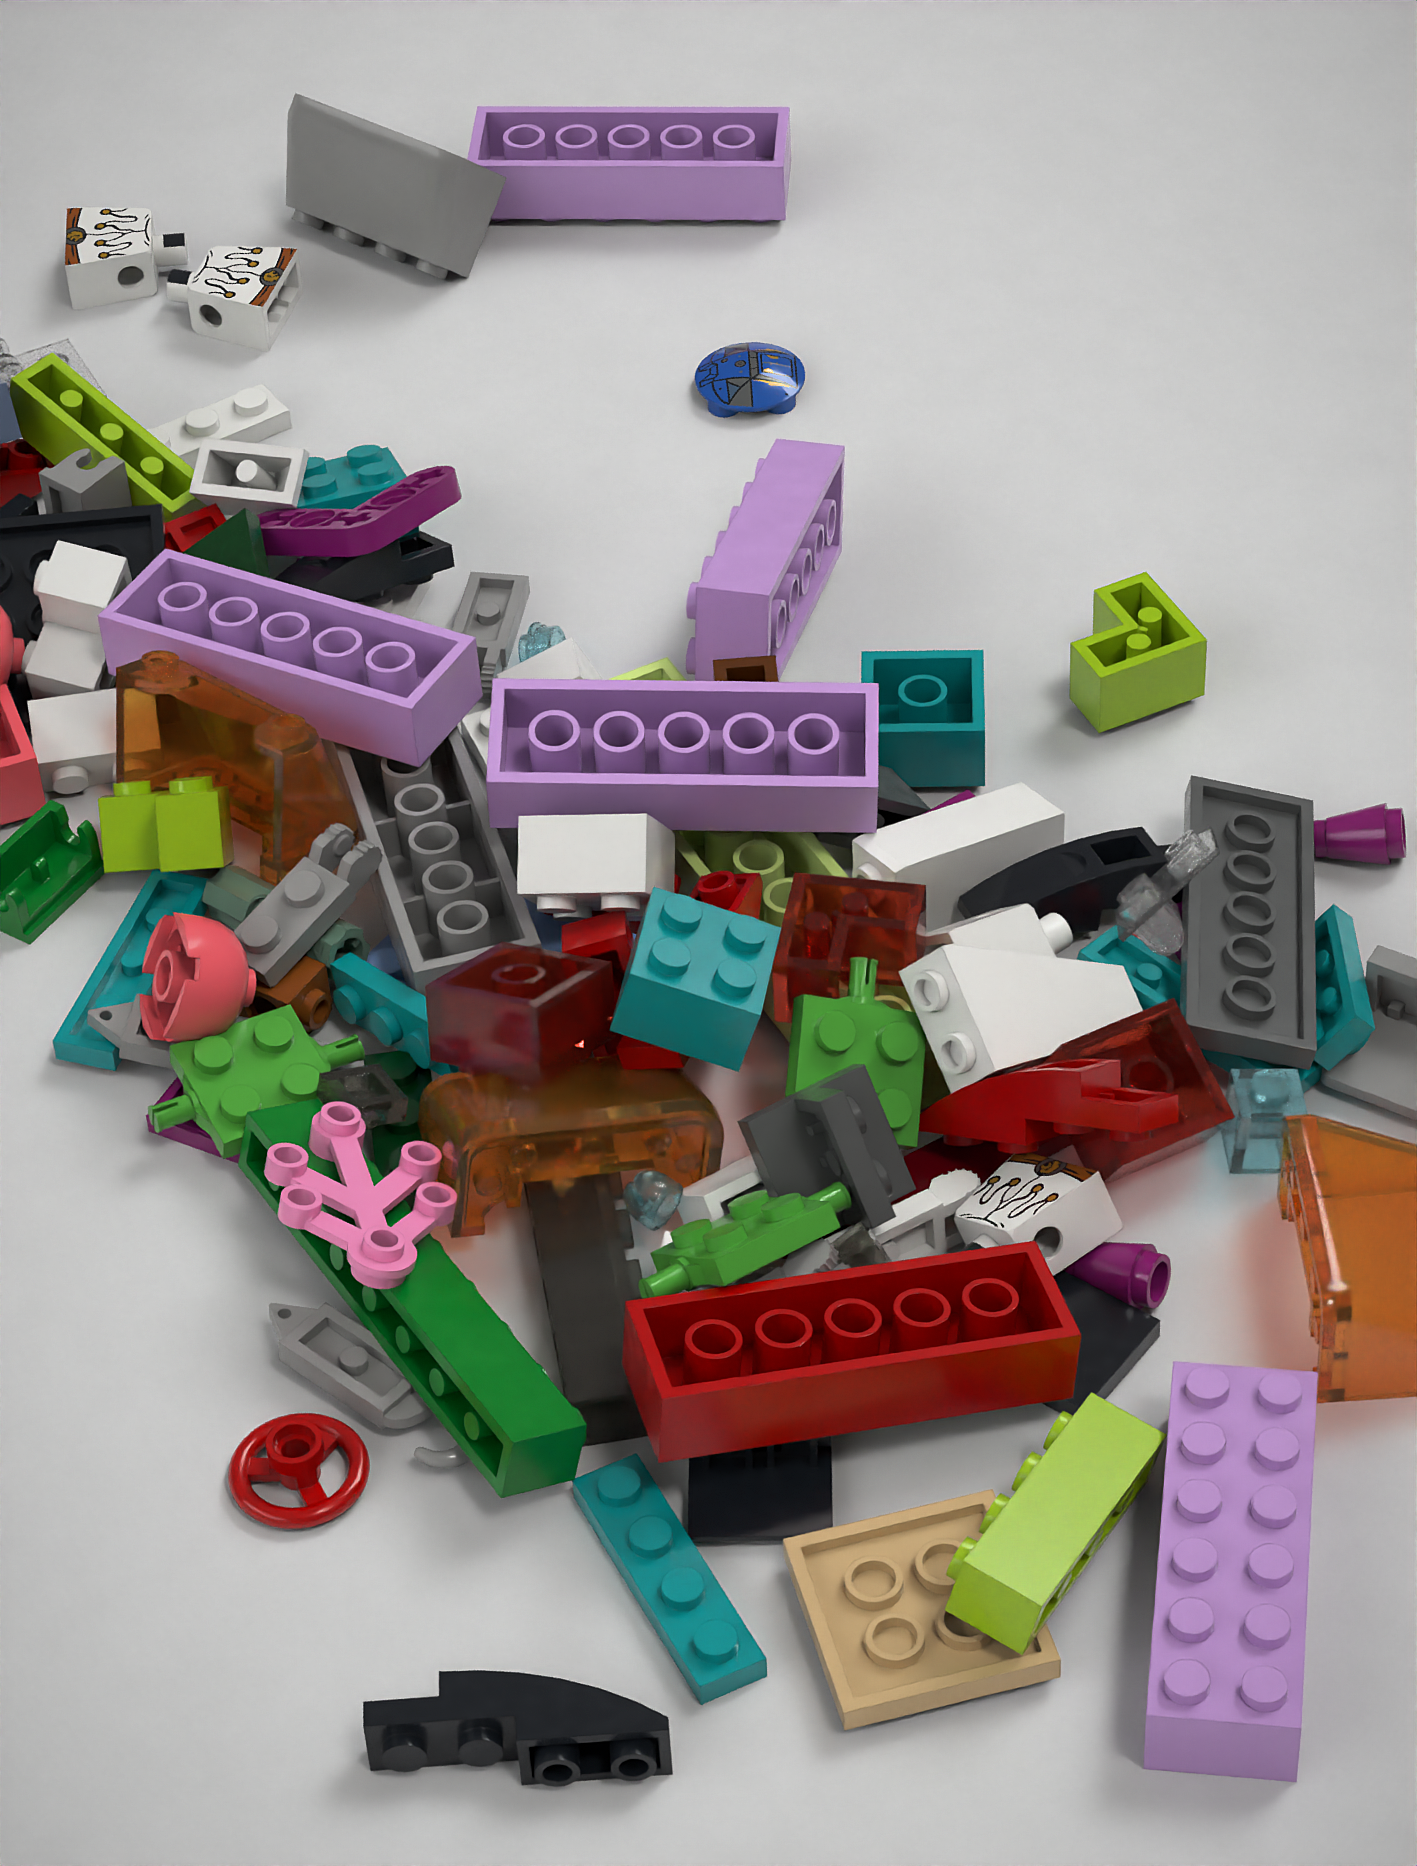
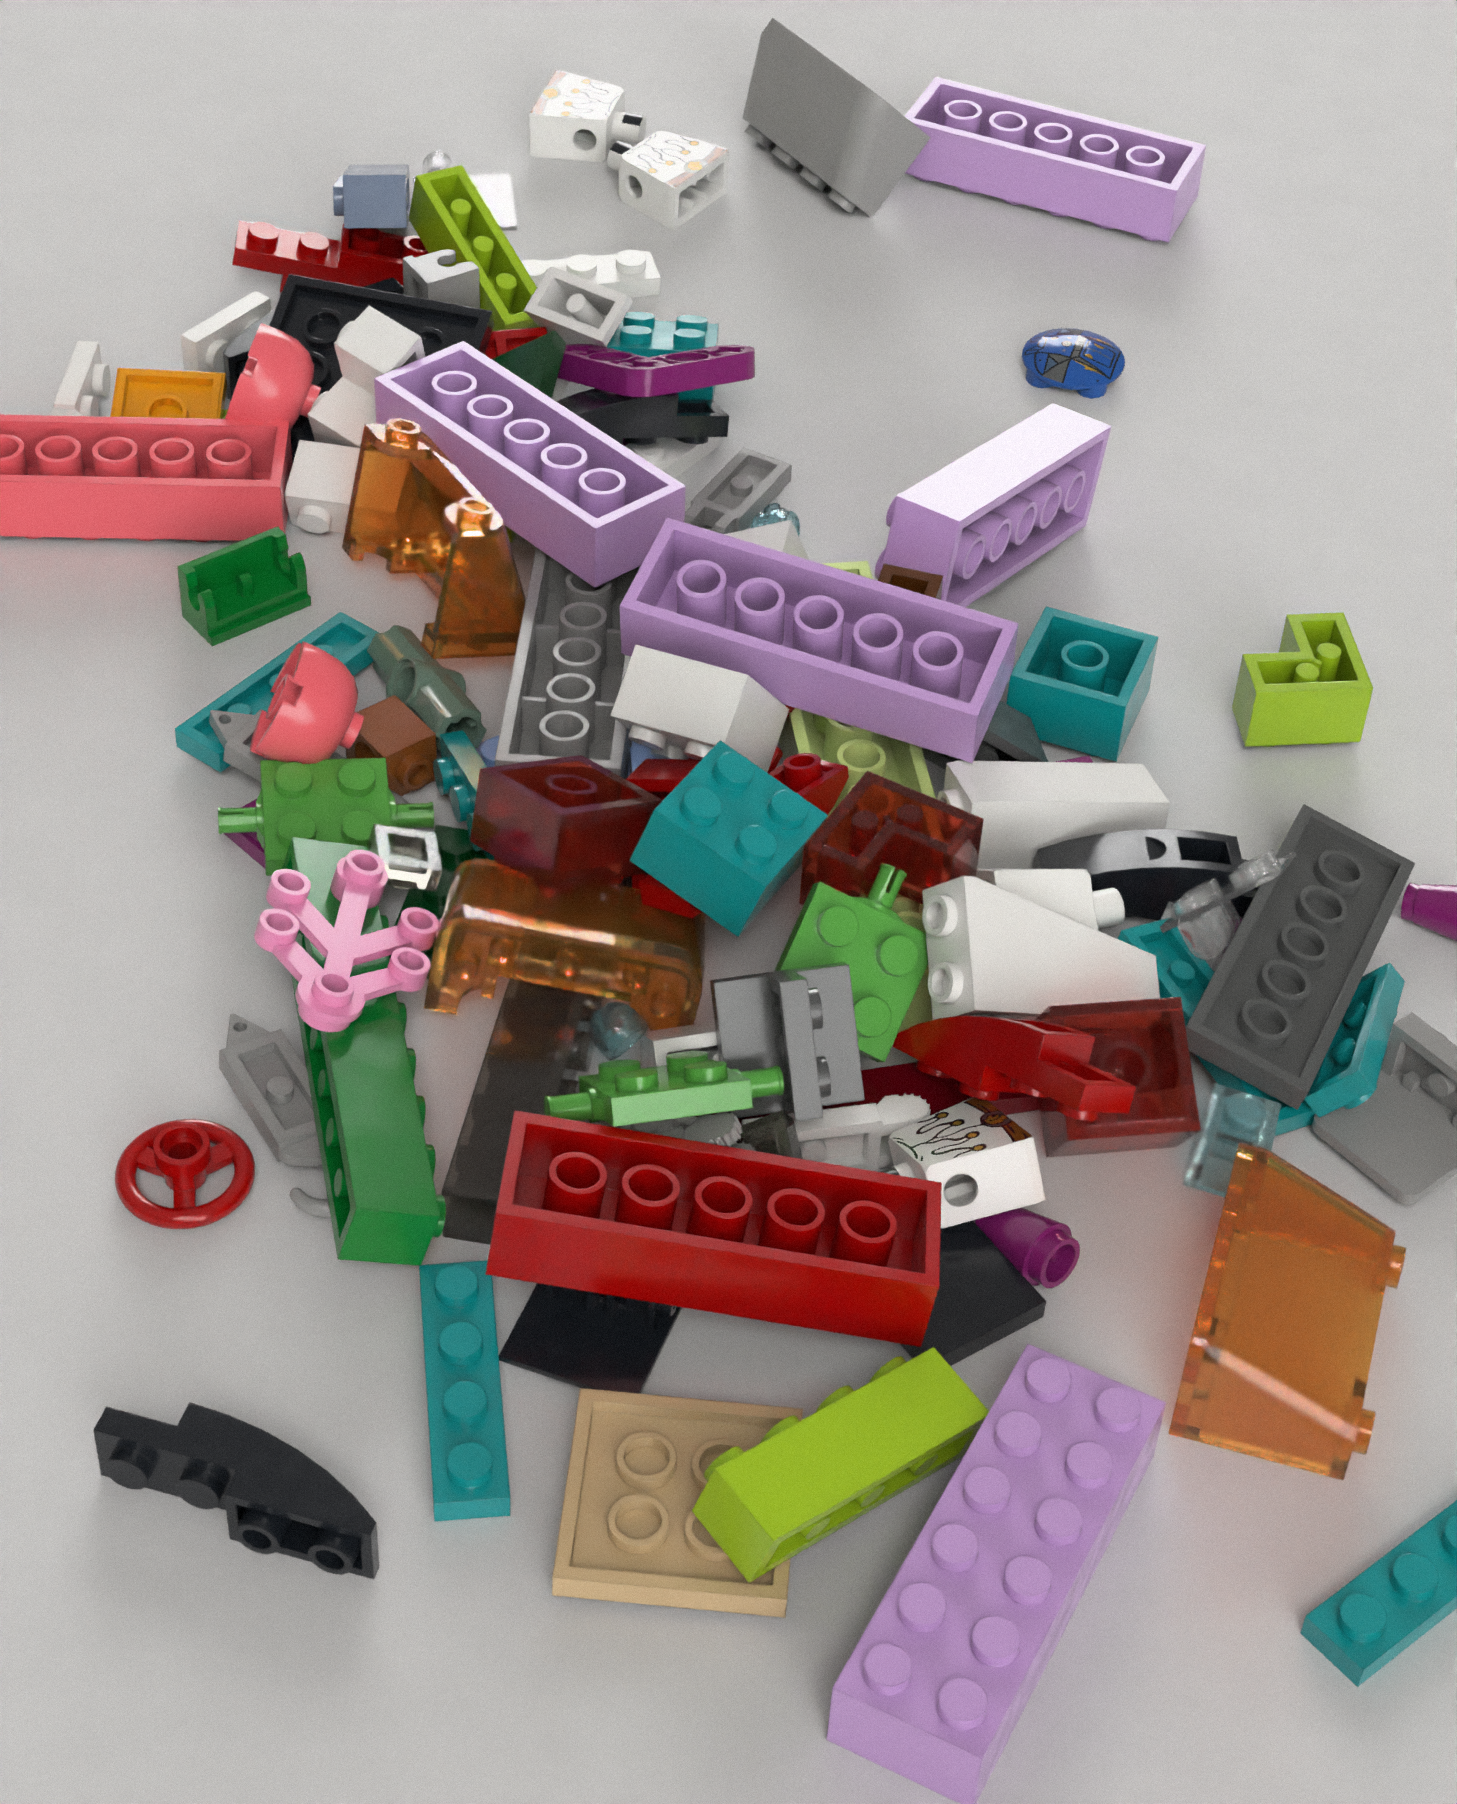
camera: 15 degrees right, 0 degrees up
(166, 829) = (367, 582): lime brick -> none
(306, 902) = (436, 674): light grey hinge -> none

